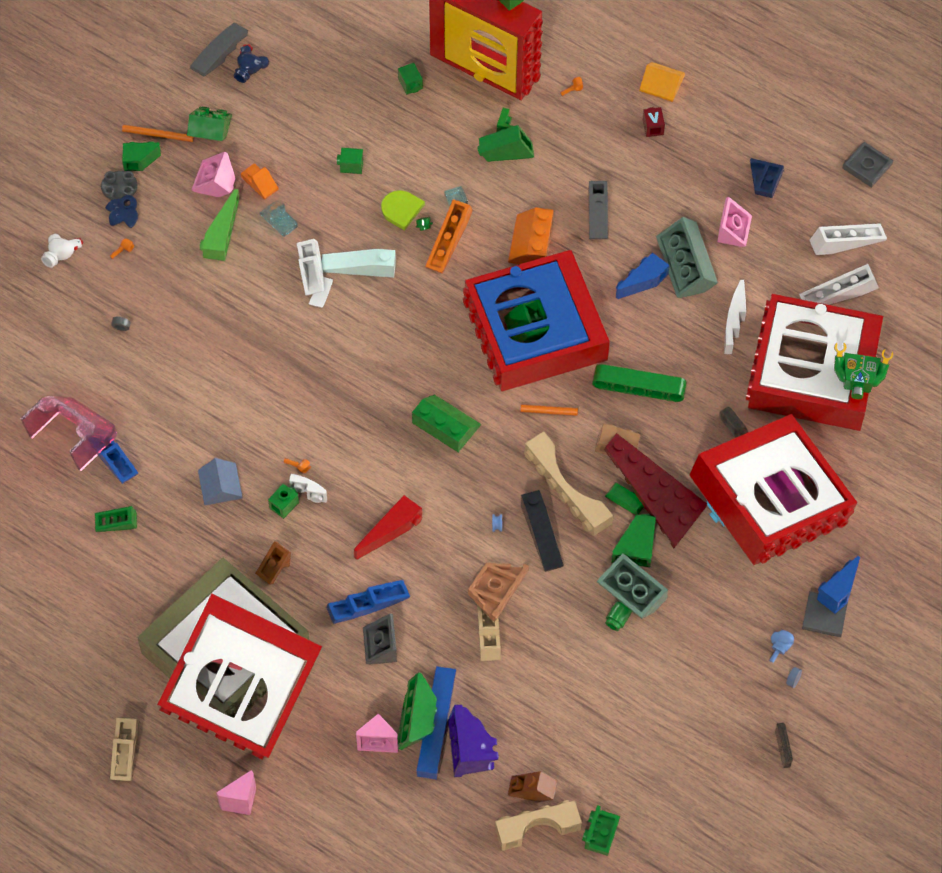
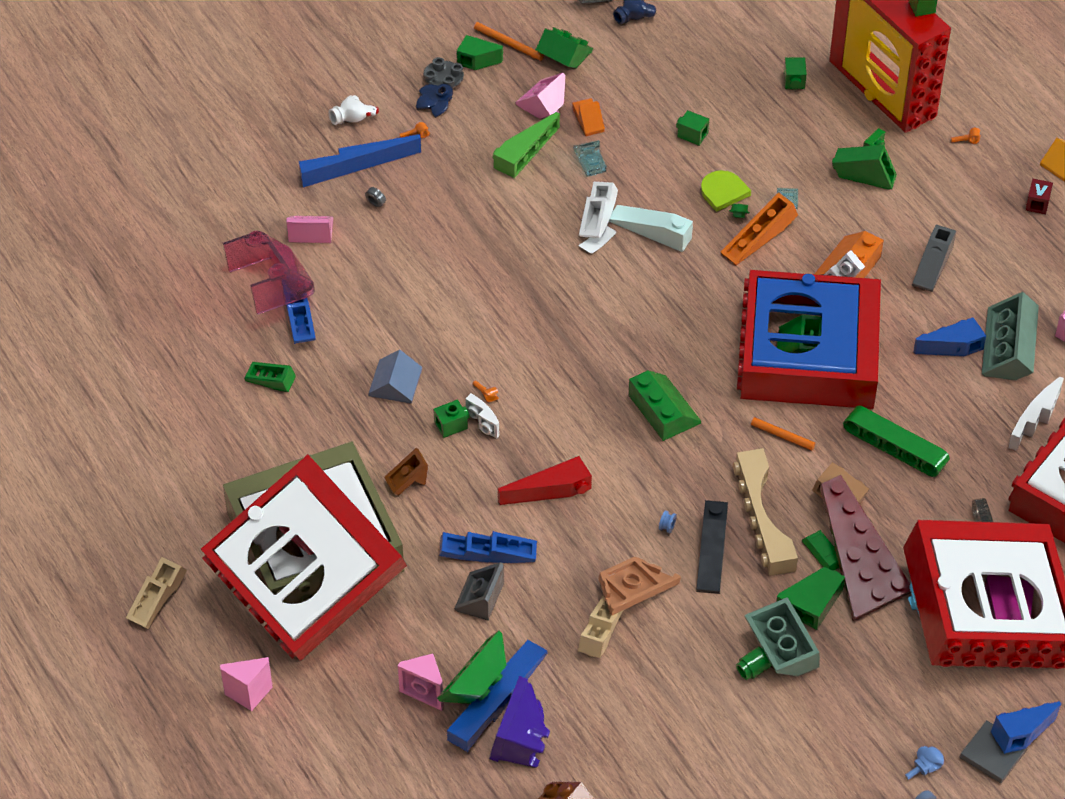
camera: 25 degrees right, 10 degrees down
(80, 372) = (310, 229): none -> bright pink slope
(86, 293) = (357, 158): none -> blue slope
(538, 249) = (847, 266): none -> white slope

